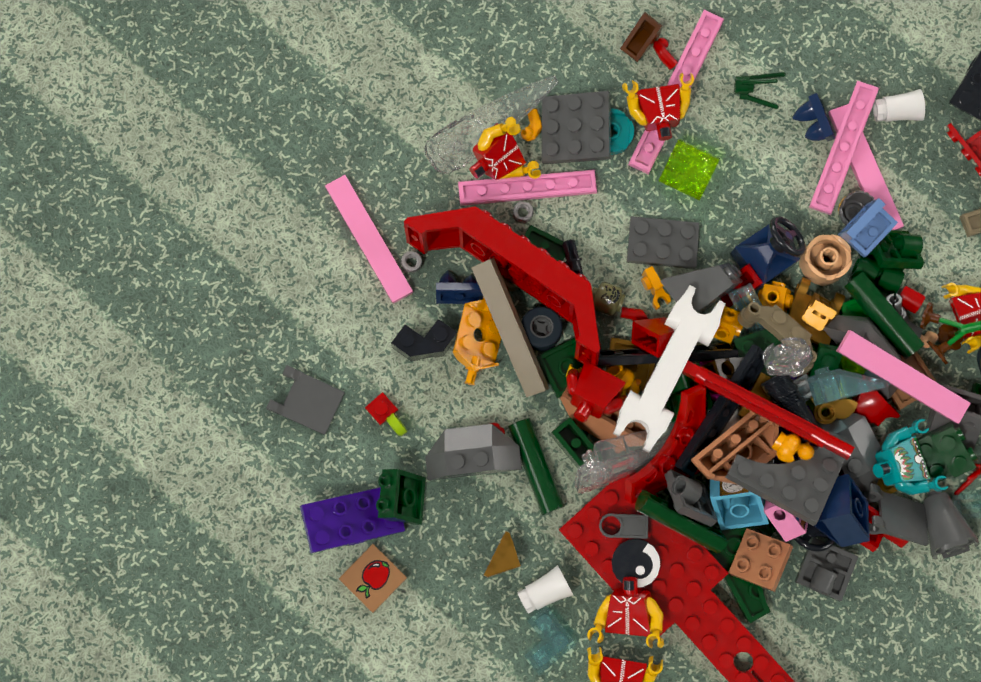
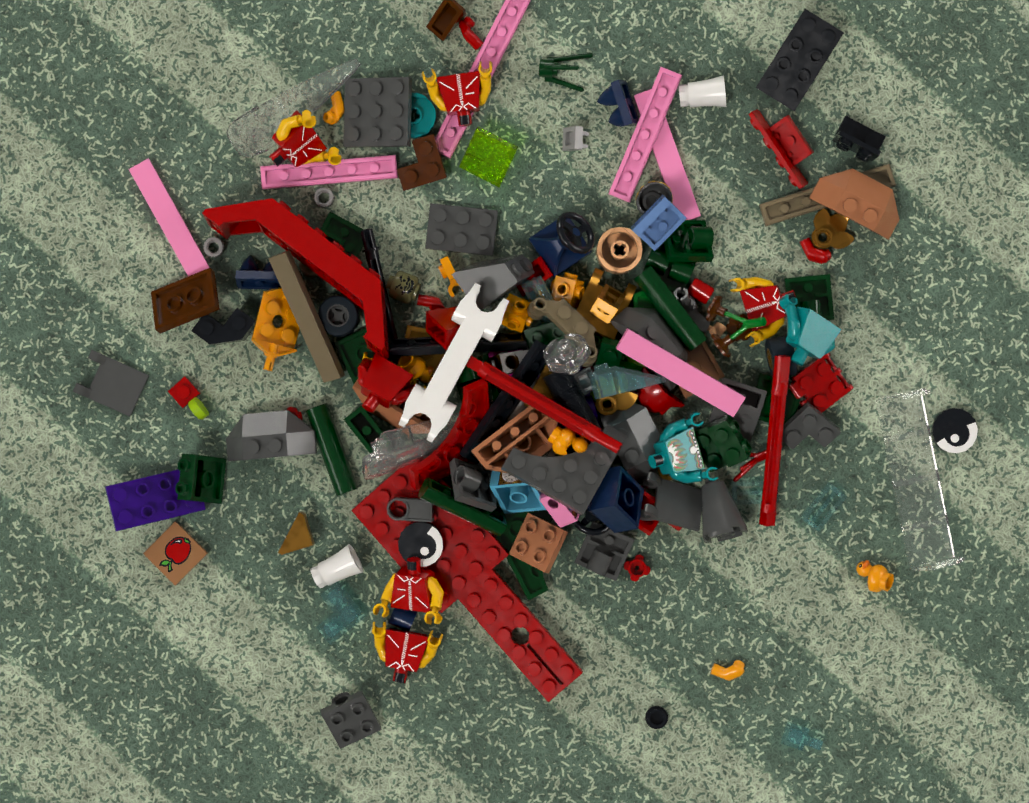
camera: 10 degrees right, 10 degrees up
(384, 313) = (185, 300): none -> reddish brown plate
(616, 644) = (402, 618): none -> dark blue brick
(629, 178) = (429, 165): none -> reddish brown plate
(772, 152) = (573, 138): none -> light grey tile
(868, 588) = (630, 566): none -> red plate

